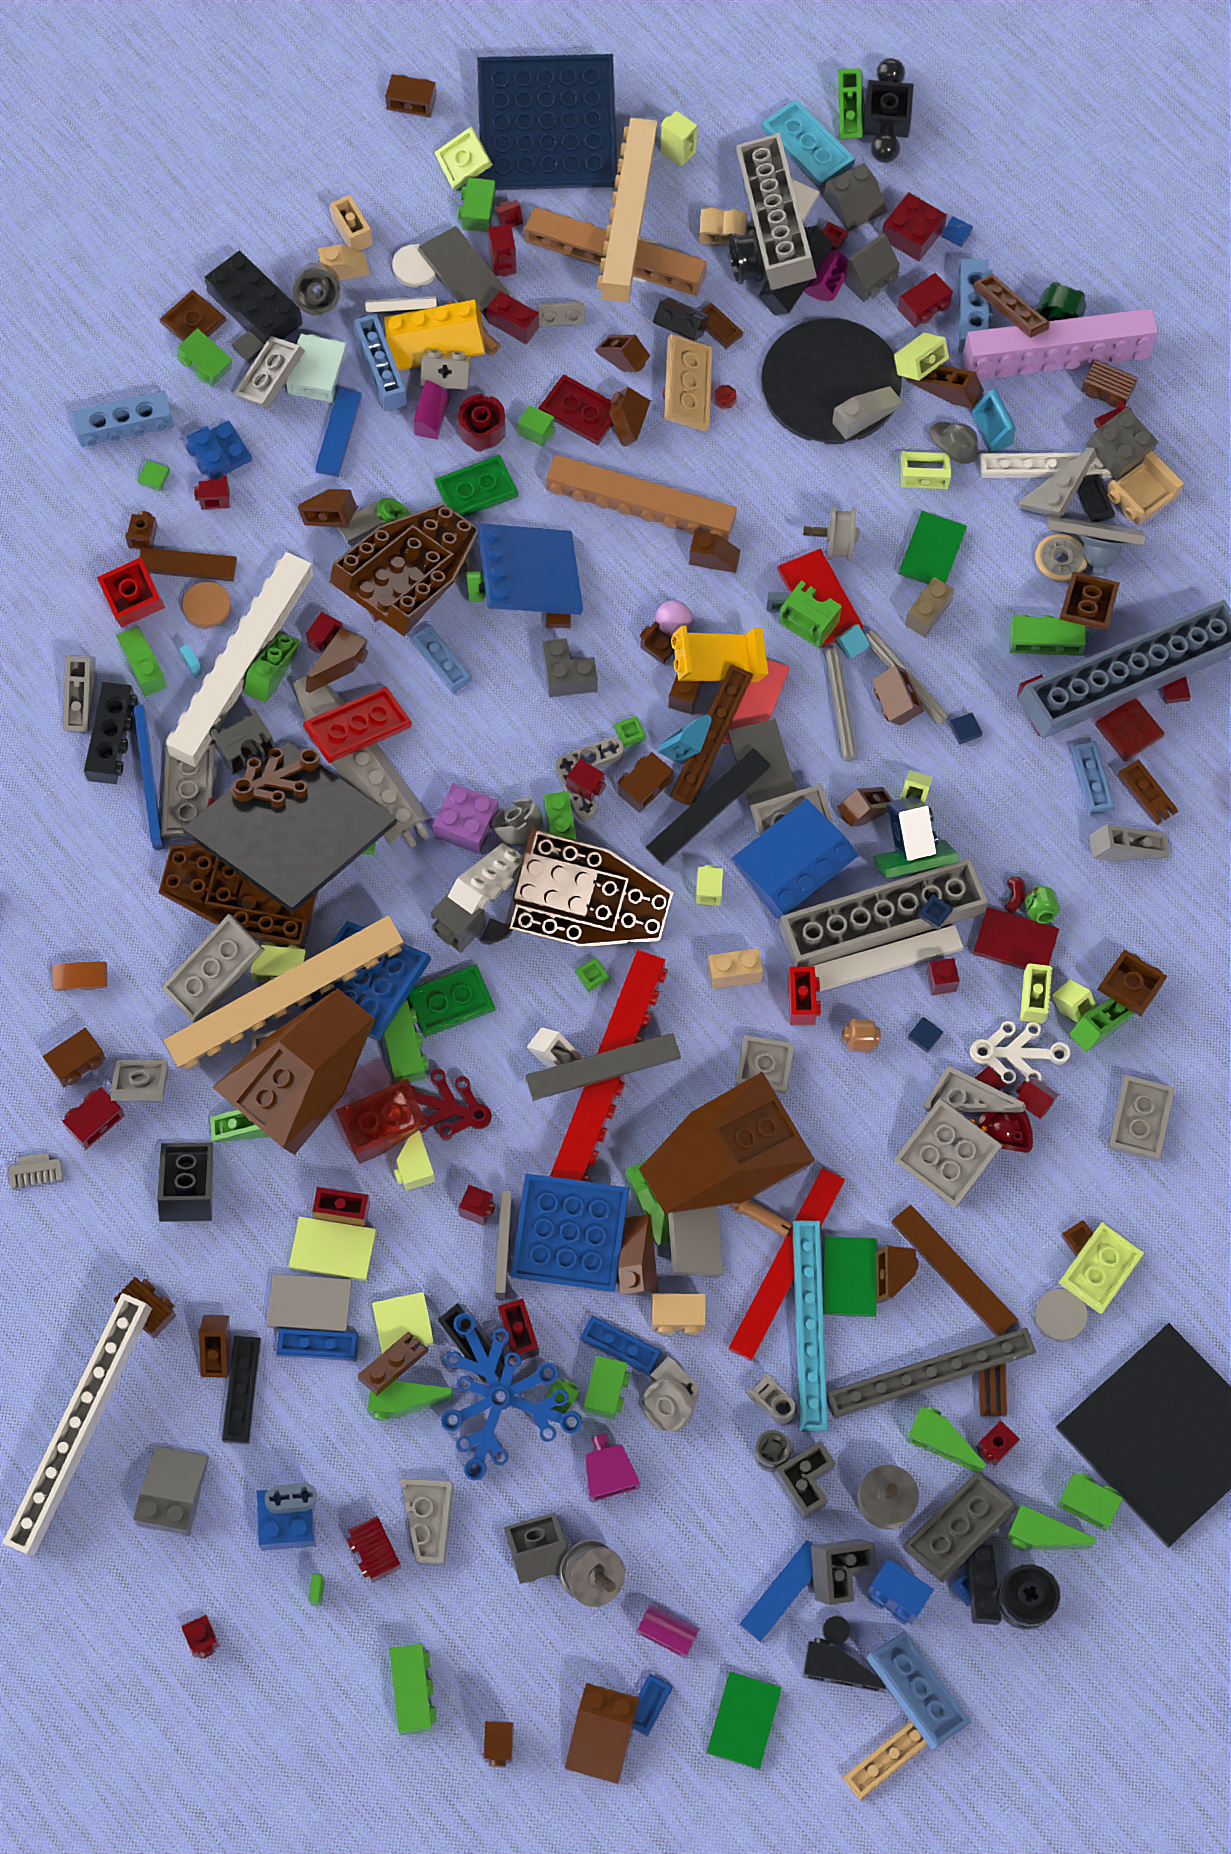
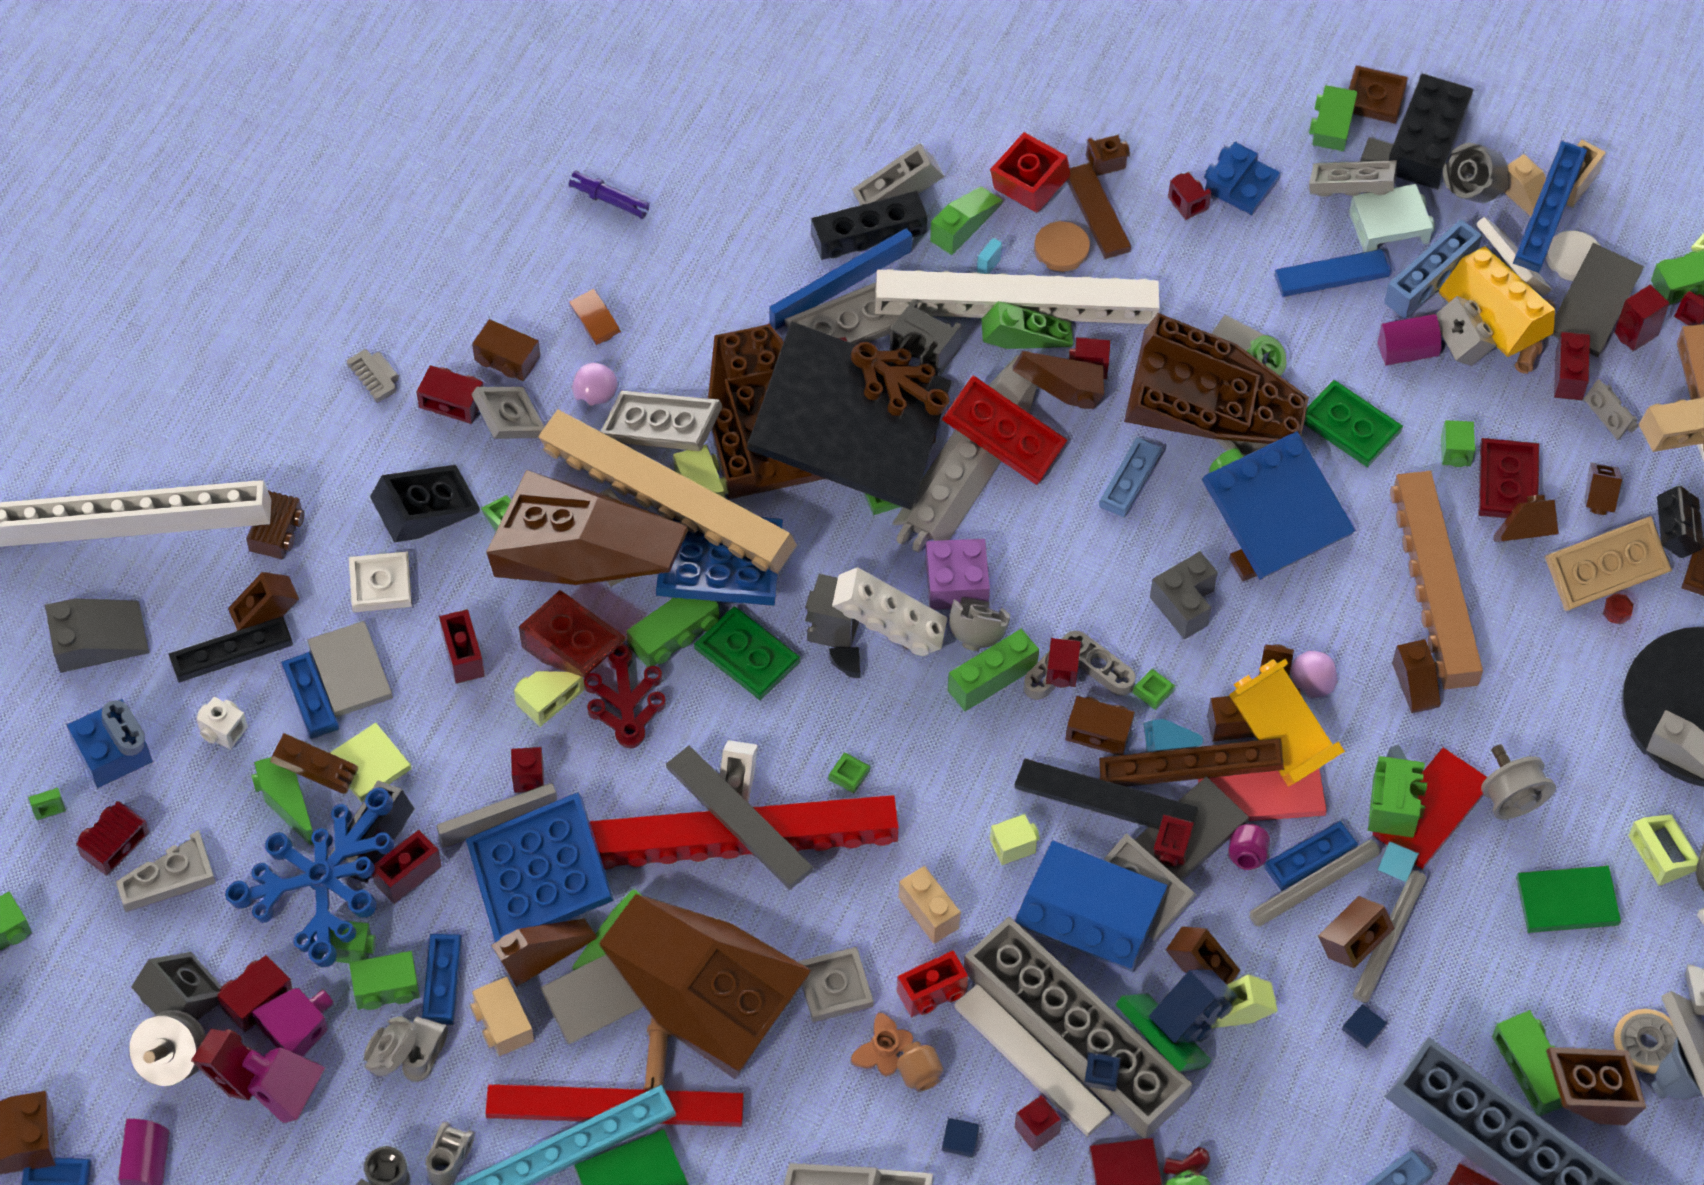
camera: 65 degrees right, 10 degrees down
(129, 409) = (1221, 83): medium blue brick -> none
(142, 1005) = (594, 384): none -> lavender hair
(153, 475) = (1177, 139): bright green tile -> none
(239, 1247) = (380, 581): none -> white tile
(313, 1413) = (221, 722): none -> white brick
(328, 508) = (1235, 299): reddish brown slope -> none
(332, 1249) = (418, 664): yellowish green tile -> none
(381, 255) = (1550, 206): none -> blue tile
(481, 422) = (1425, 389): dark red brick -> none
(569, 1490) = (253, 988): none -> dark red brick
(584, 895) = (926, 717): reddish brown wedge -> none
(628, 1530) = (221, 1061): none -> dark red brick
(661, 1497) = (282, 1081): none -> magenta torso
(773, 776) = (1173, 841): none -> dark red bracket
(795, 731) = (1249, 846): none -> magenta head
(817, 695) = (1310, 855): none -> blue tile
(829, 1053) = (883, 1047): none -> nougat animal
(929, 607) = (1489, 921): dark tan brick -> none

